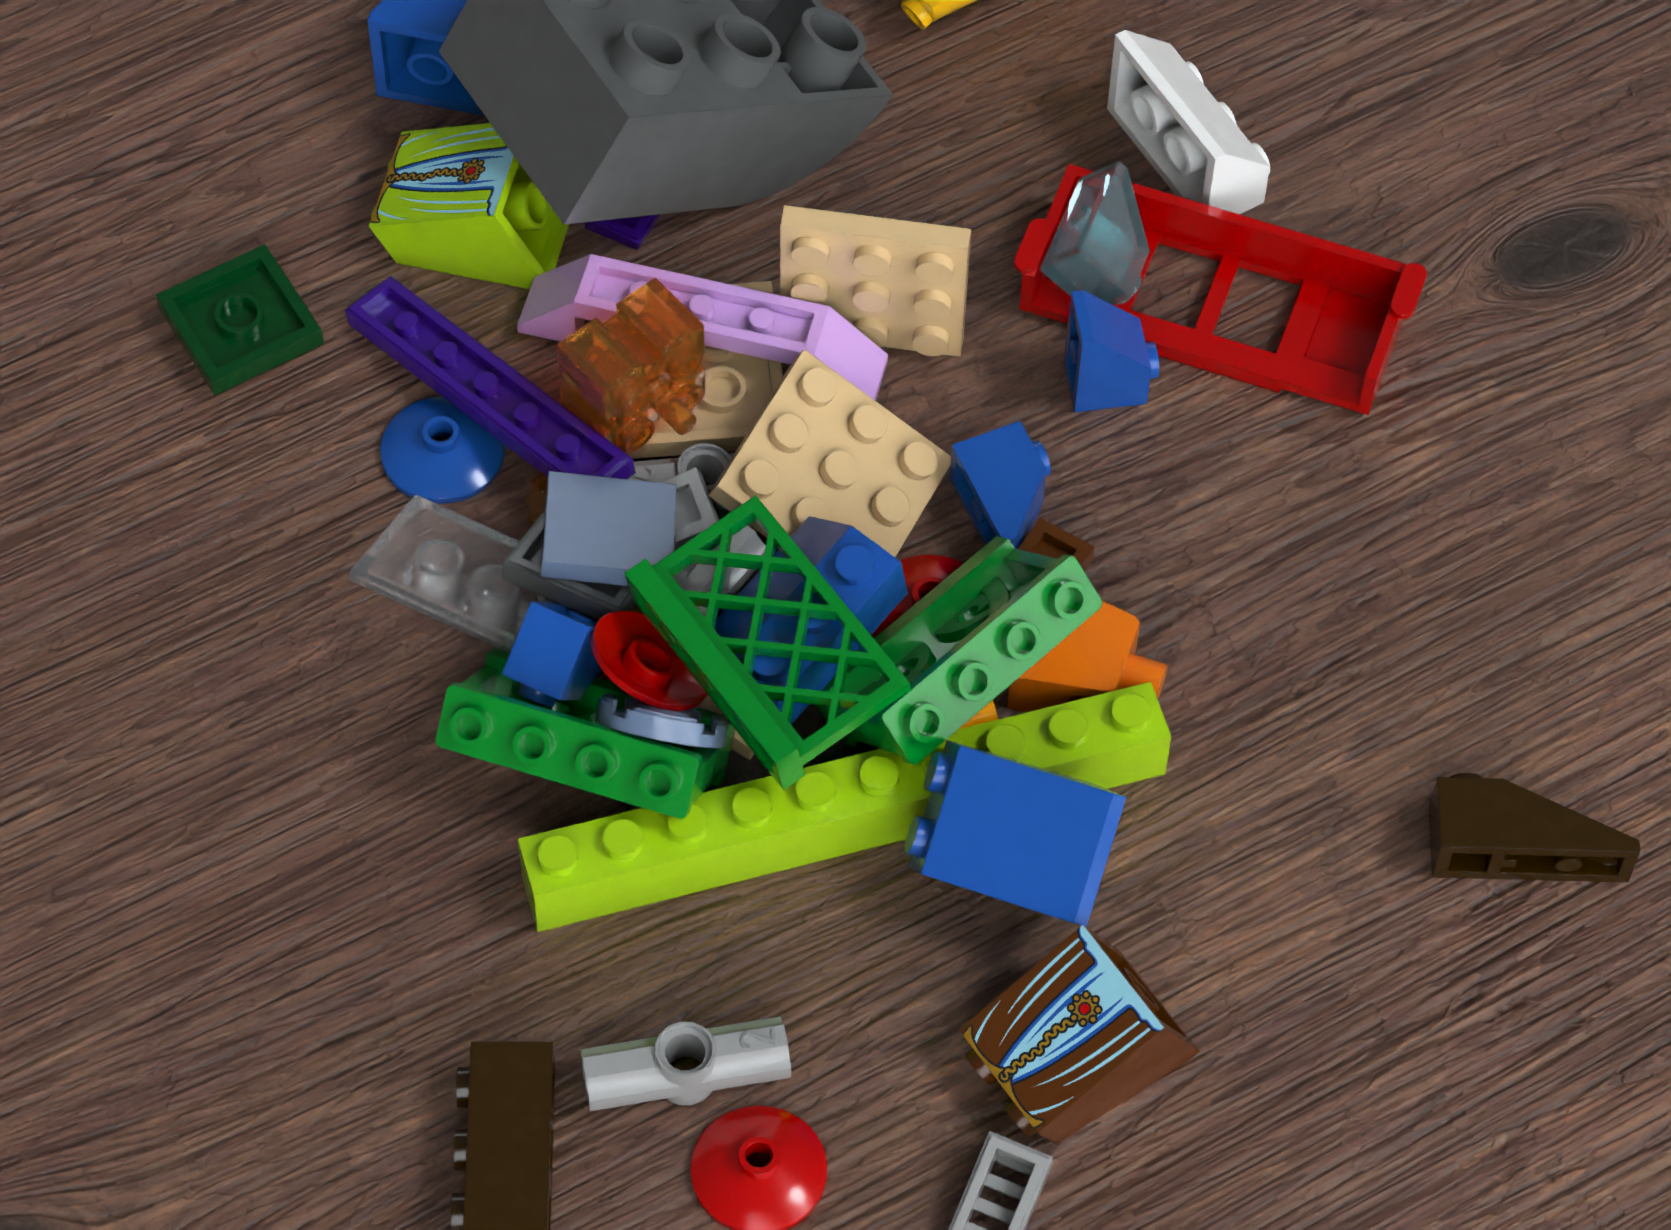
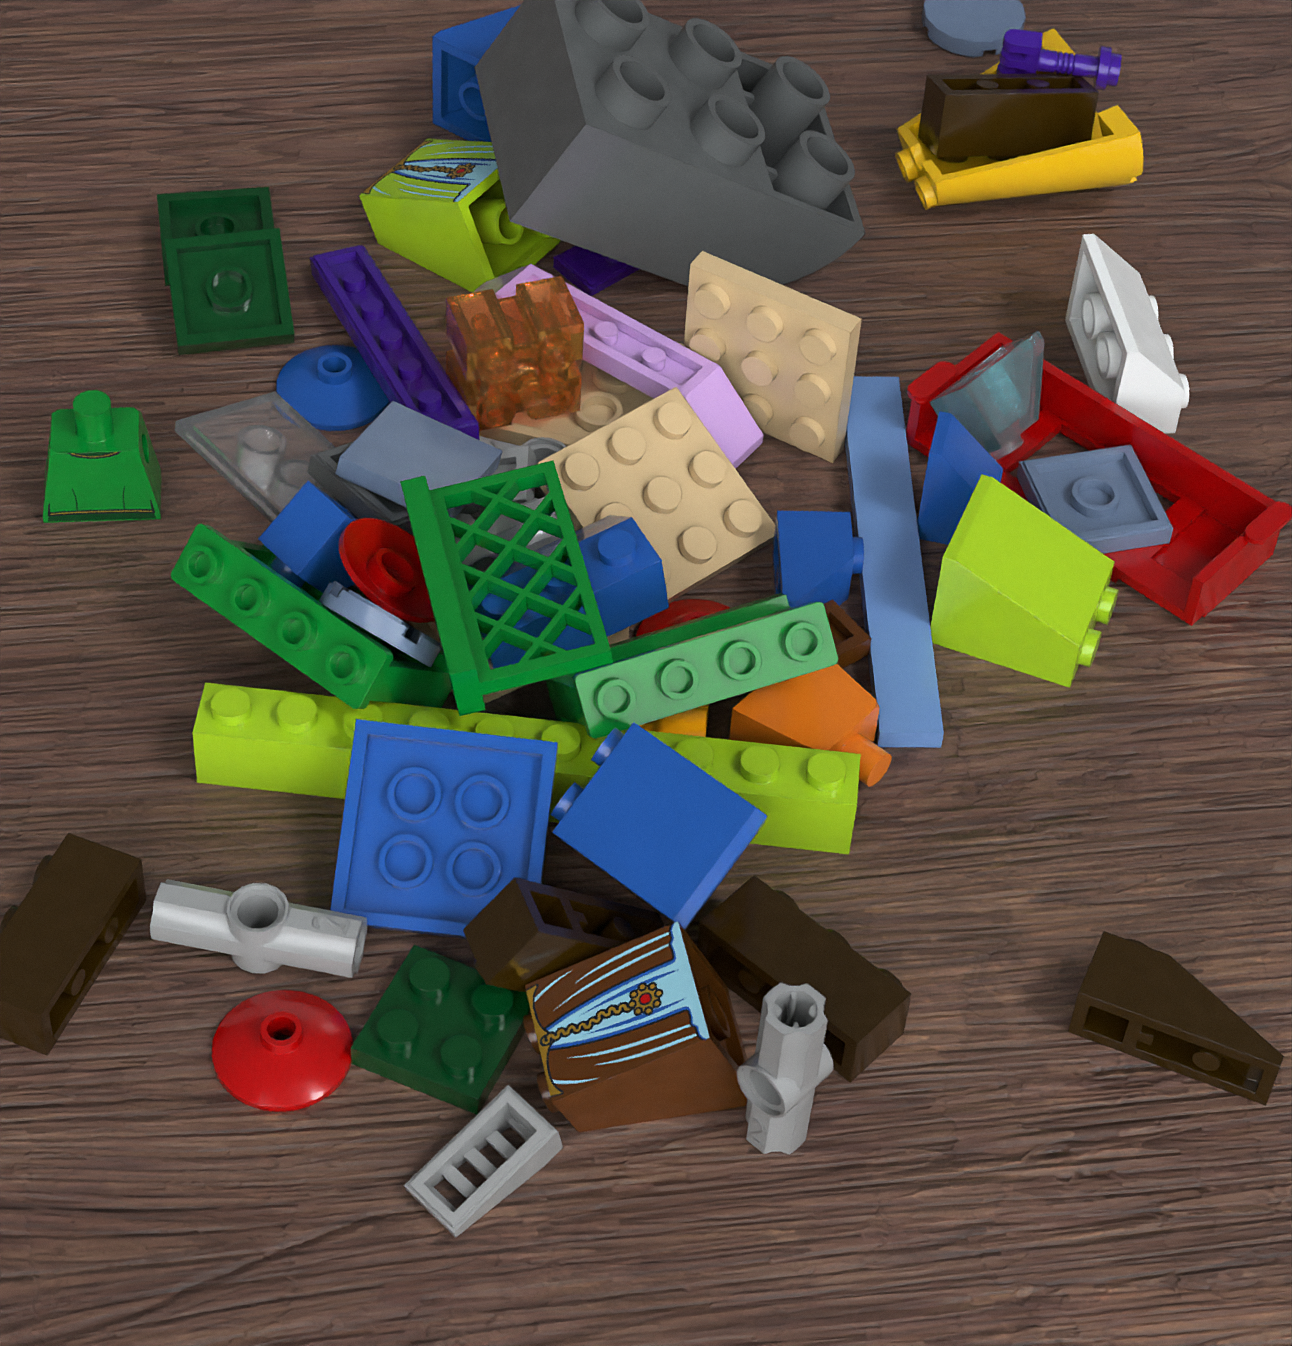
camera: 20 degrees right, 10 degrees down
(273, 637) = (100, 464): none -> green torso
(293, 385) = (229, 291): none -> dark green plate
(813, 905) = (439, 824): none -> blue plate
(895, 1093) = (442, 1030): none -> dark green plate
(967, 969) = (544, 929): none -> dark brown slope
(1080, 468) = (892, 573): none -> medium blue tile
(1193, 920) = (766, 940): none -> dark brown brick
(1211, 443) = (1021, 588): none -> lime slope
(1230, 317) = (1098, 497): none -> sand blue tile
(1235, 1027) = (785, 1068): none -> light grey piece

